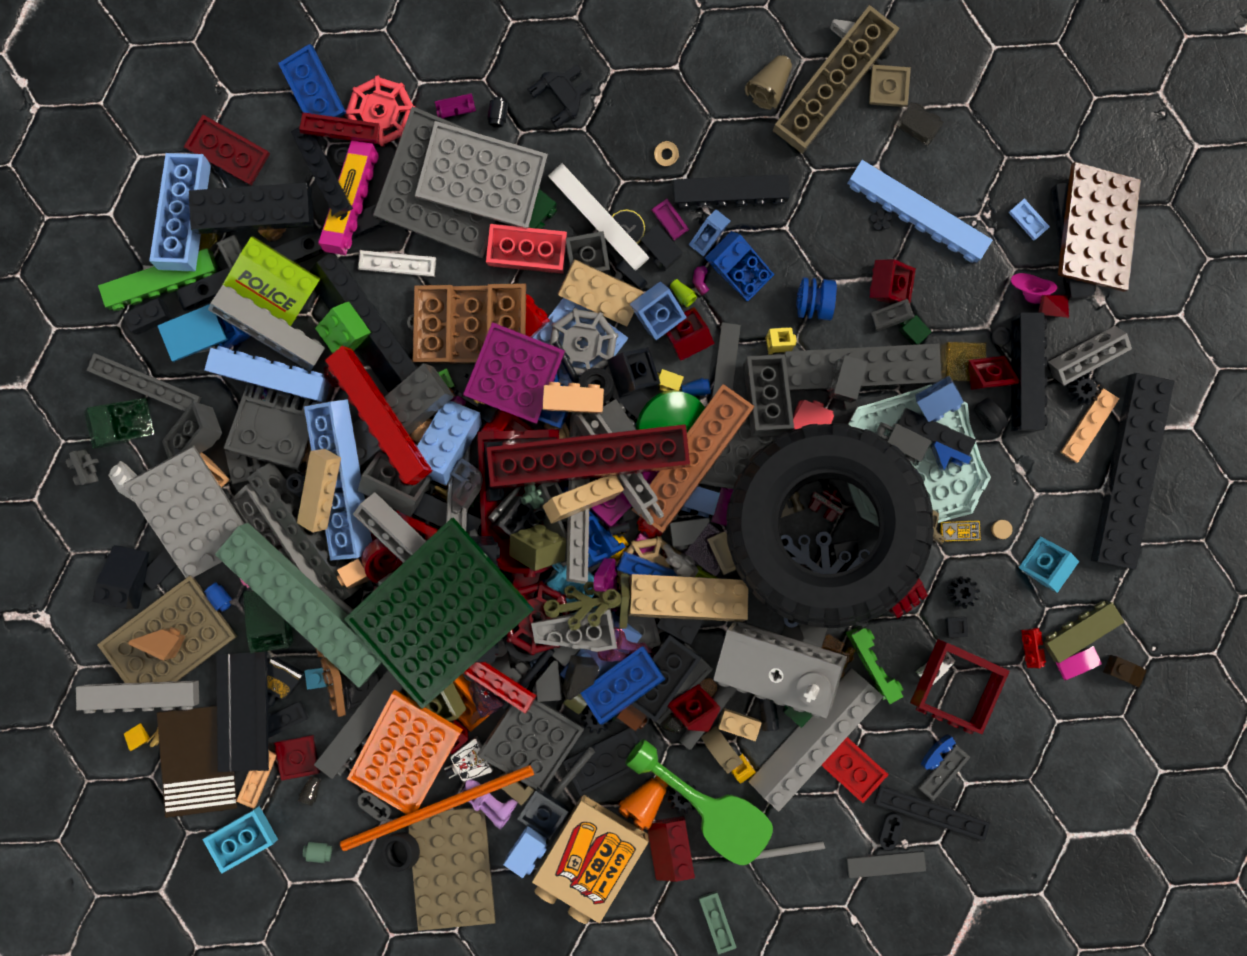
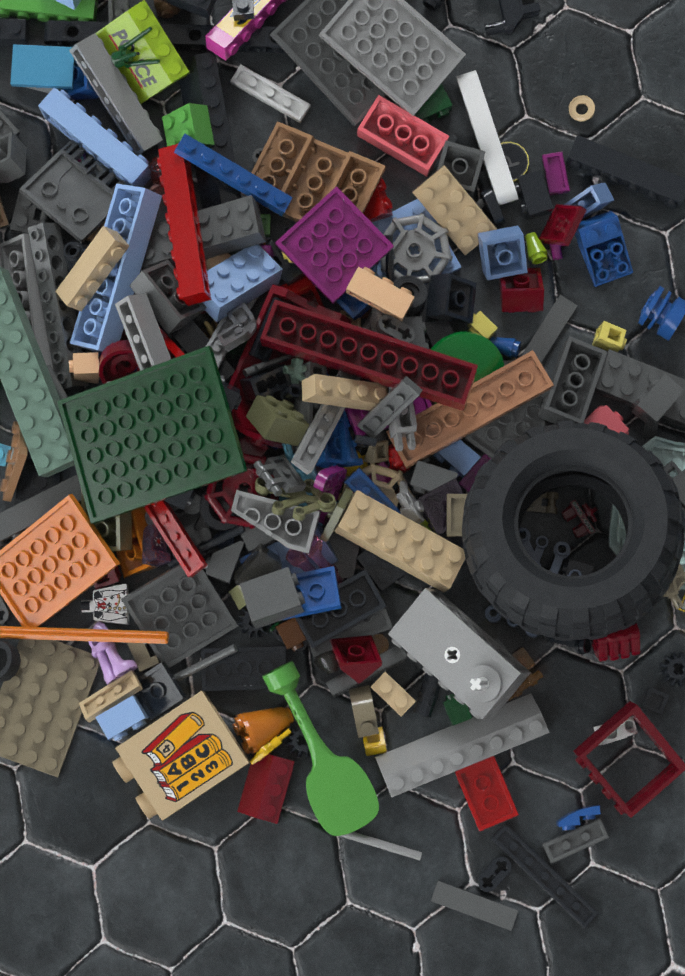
camera: 25 degrees right, 5 degrees down
(258, 293) = (124, 56): none -> dark green plant
(399, 352) = (233, 174): none -> blue plate
(506, 837) = (110, 695): none -> tan plate
(566, 591) = (284, 473): none -> dark grey plate
(598, 419) = (395, 328): none -> dark grey beam
(604, 698) = (272, 597): none -> dark grey brick
(627, 493) = (389, 407): none -> dark grey plate
(635, 530) = (378, 453): none -> dark tan slope
(659, 816) = (269, 747): none -> yellow hand
(697, 262) = (562, 225): none -> dark red tile
(717, 922) = (278, 882): sand green plate -> none
(862, 640) = (554, 665): bright green piece -> none

